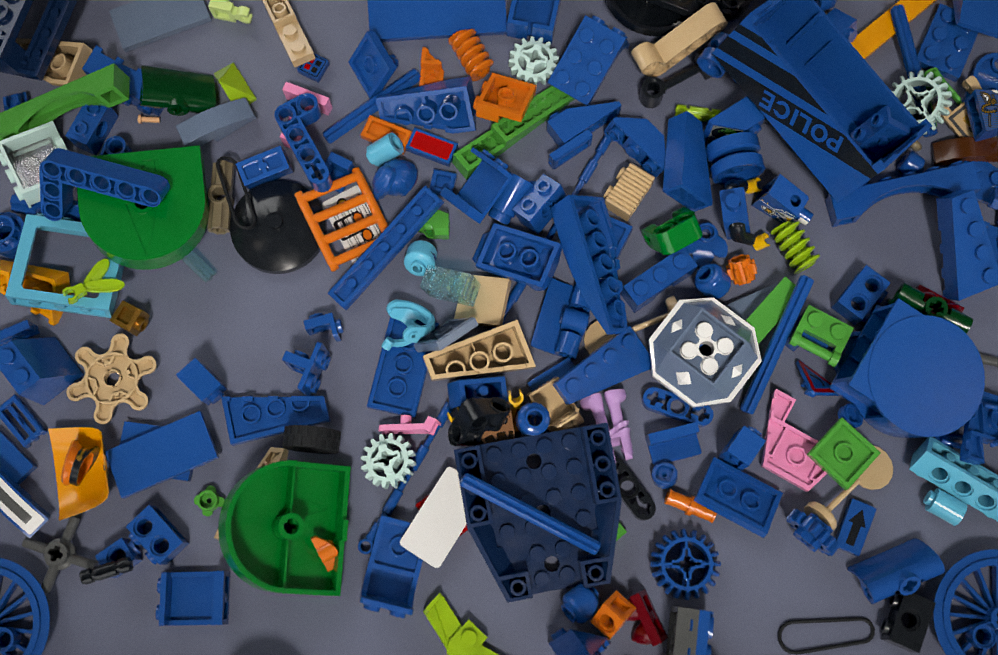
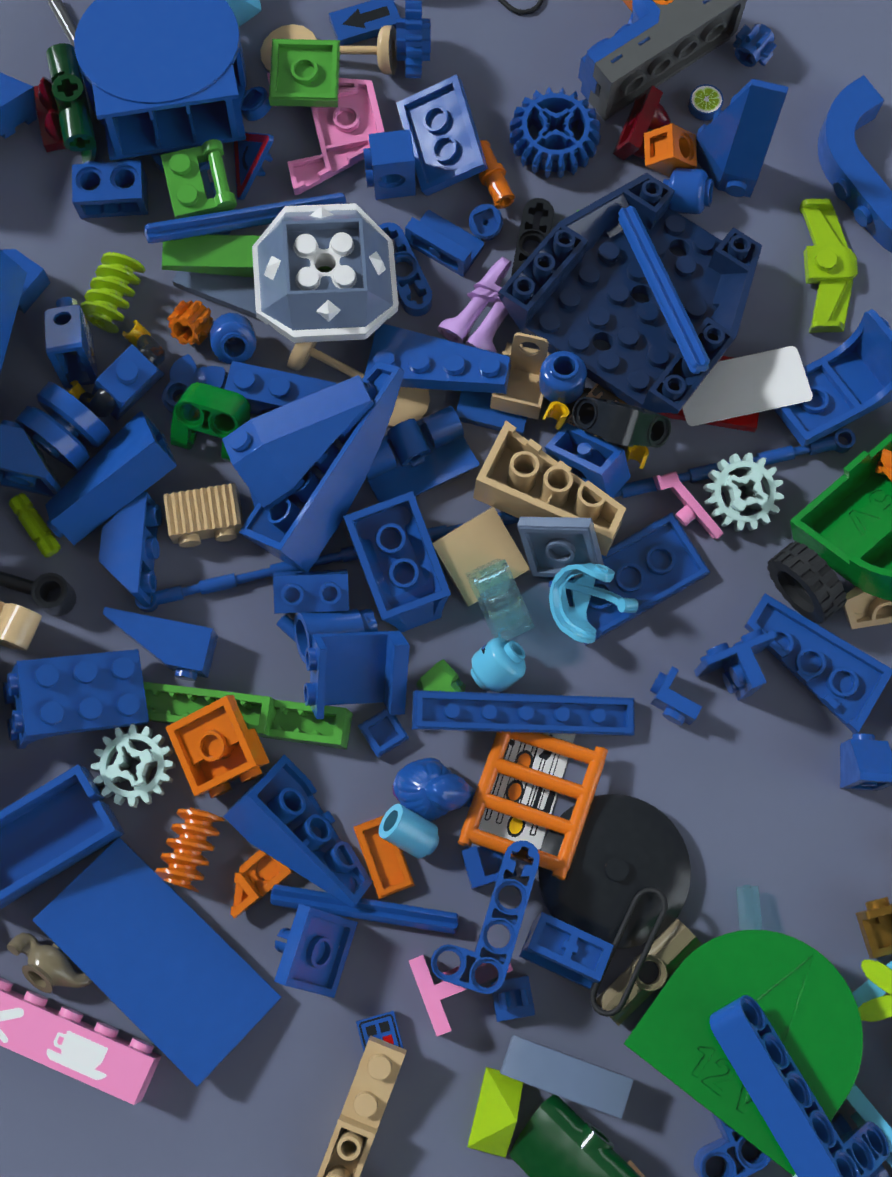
camera: 135 degrees left, 0 degrees up
(269, 133) = (513, 999): none -> blue tile
(431, 147) = (350, 787): tile -> none
(570, 149) = (221, 623): blue tile -> none
(623, 247) = (286, 442): none -> blue wedge

